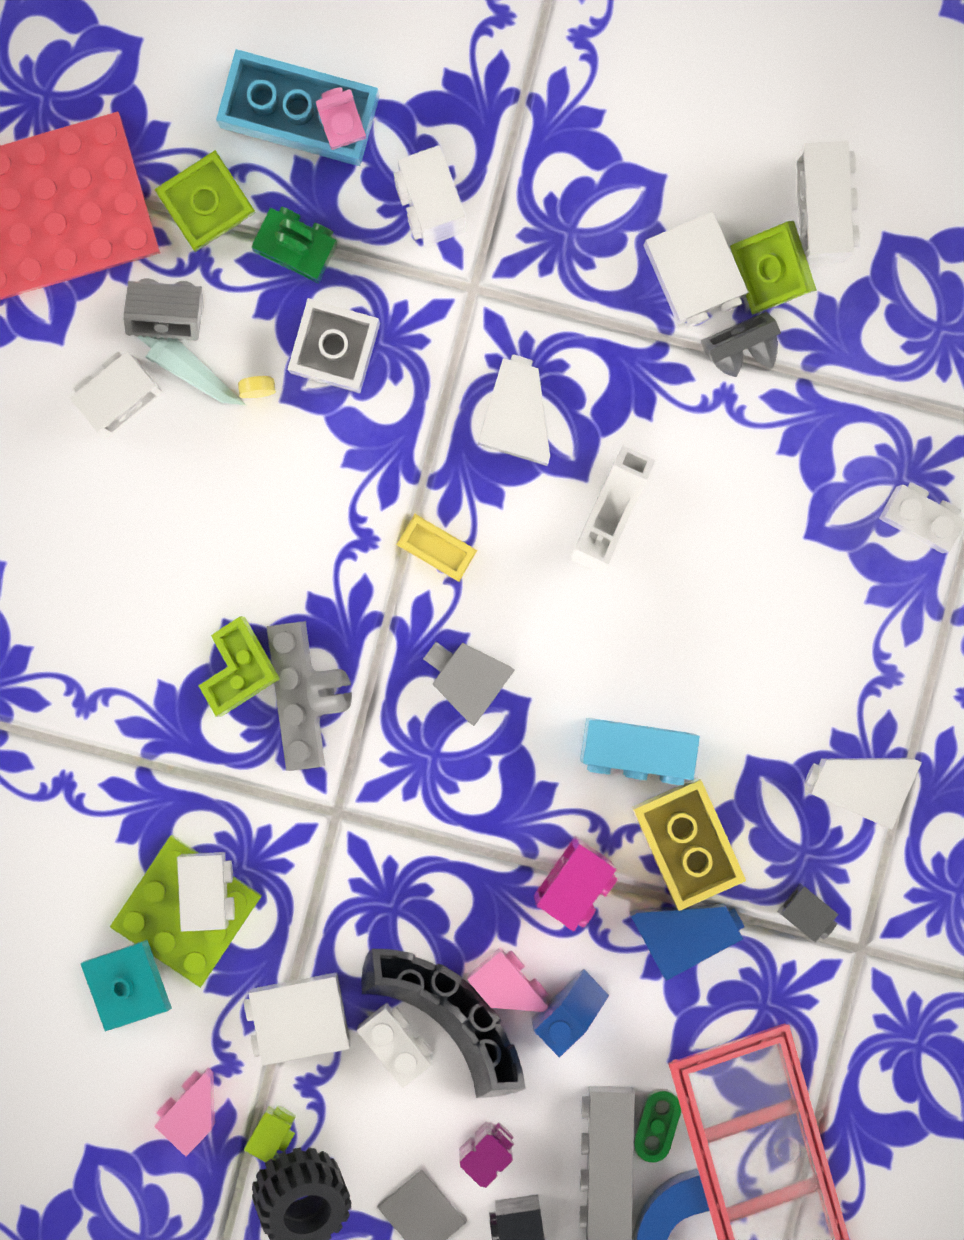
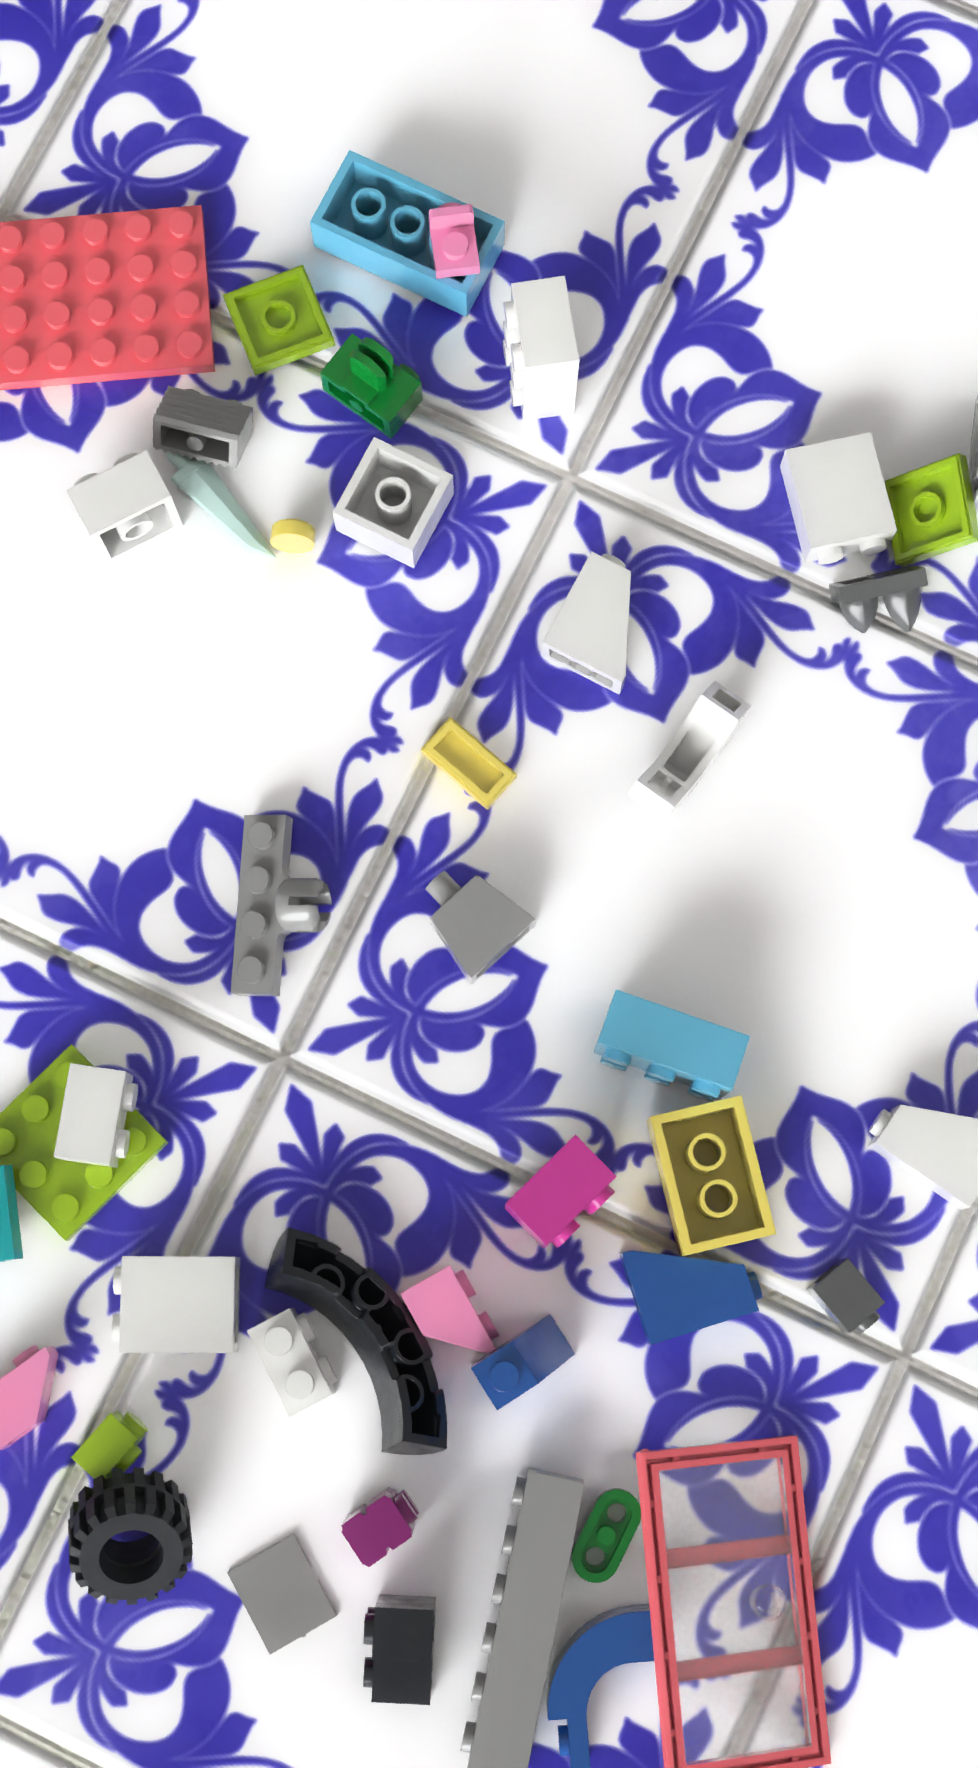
camera: 15 degrees right, 10 degrees down
(247, 670) = (207, 864): lime plate -> none

